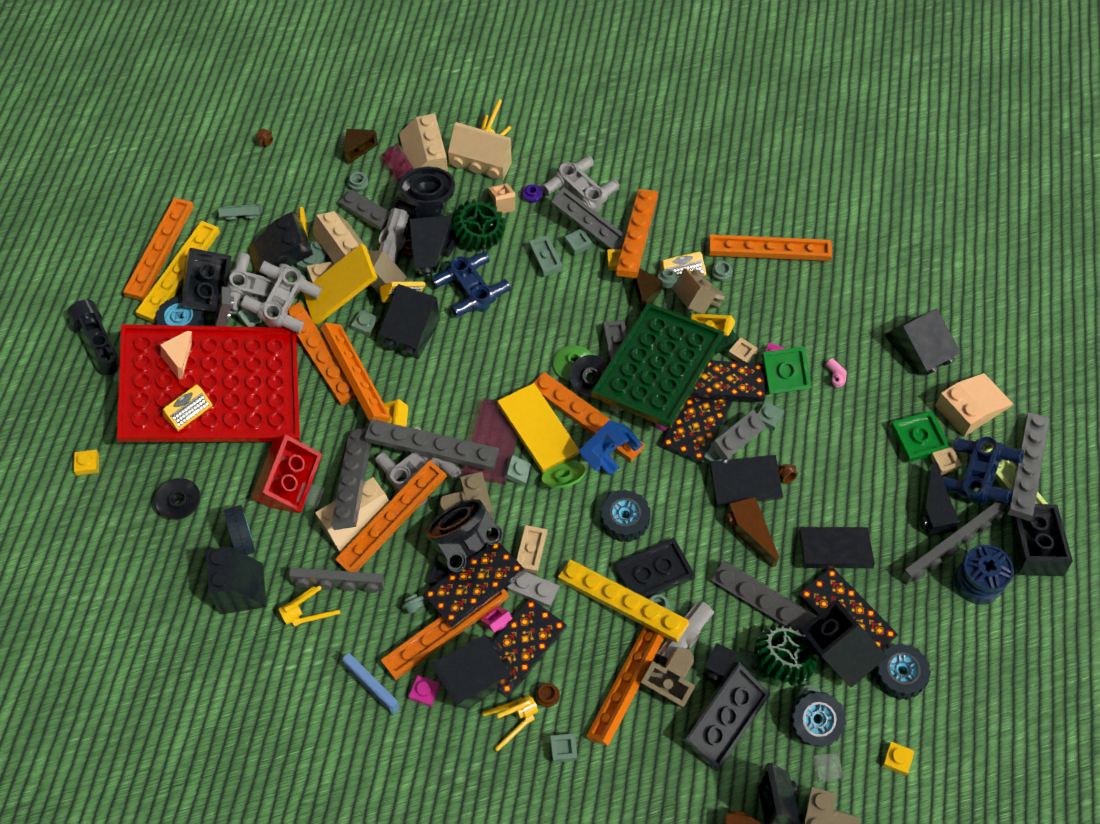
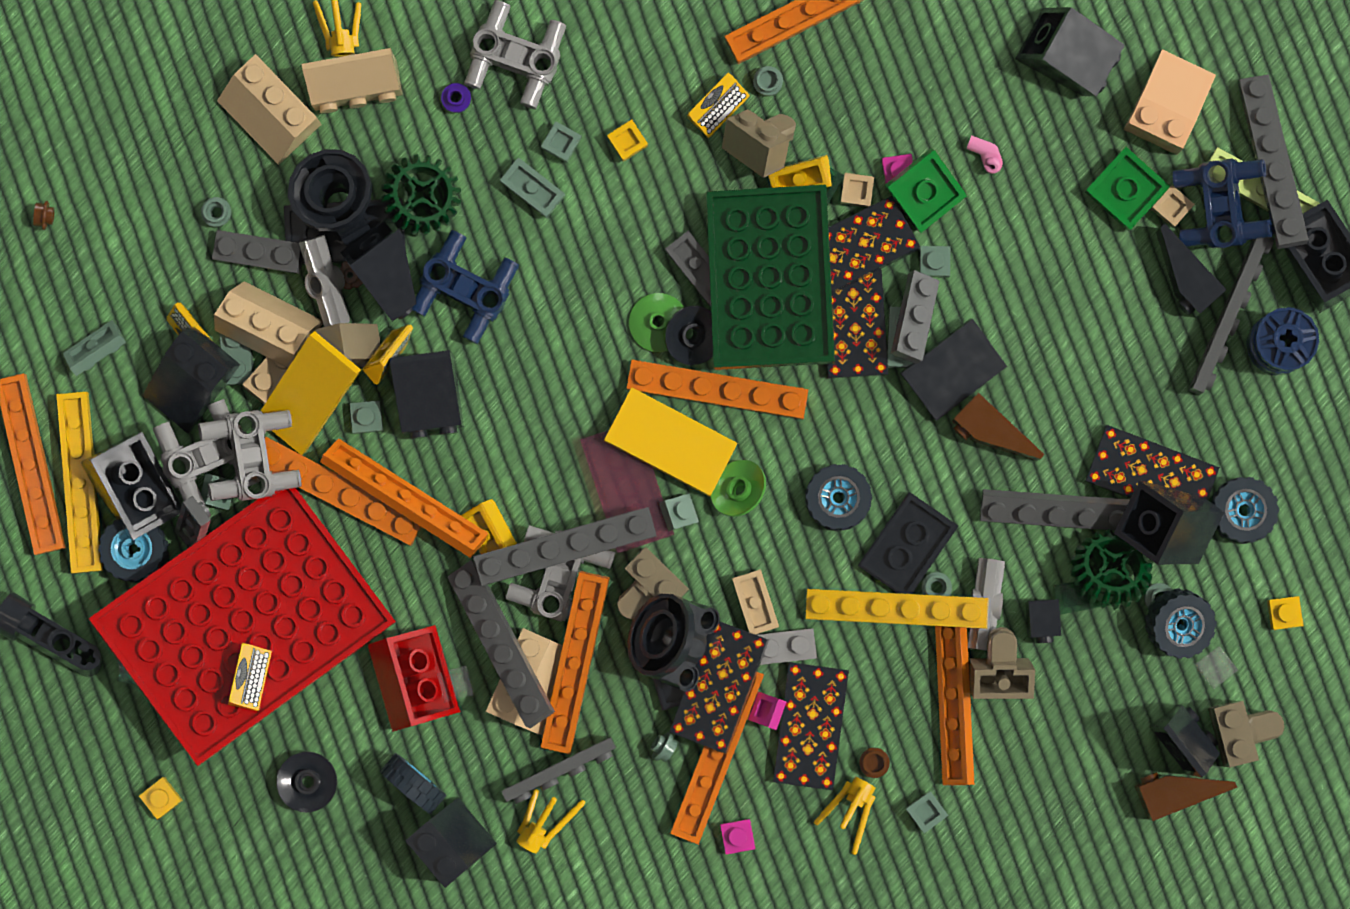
camera: 25 degrees left, 25 degrees up
(176, 352) = (186, 616): light nougat slope -> none
(358, 143) = (175, 154): dark brown slope -> none
(371, 684) = (676, 865): medium blue tile -> none
(397, 161) = (252, 152): clear pink slope -> none
(474, 671) = (785, 792): black slope -> none
(503, 197) = (421, 128): light nougat slope -> none
(588, 219) = (559, 107): dark grey plate -> none
(605, 441) = (778, 429): blue panel -> none
(637, 233) = (632, 89): orange plate -> none
(647, 288) = (688, 165): dark brown slope -> none
(668, 278) = (712, 143): sand green plate -> none
(726, 716) = (1082, 676): black tile -> none
(787, 473) = (996, 331): reddish brown plate -> none
(836, 547) = (1100, 397): black tile -> none

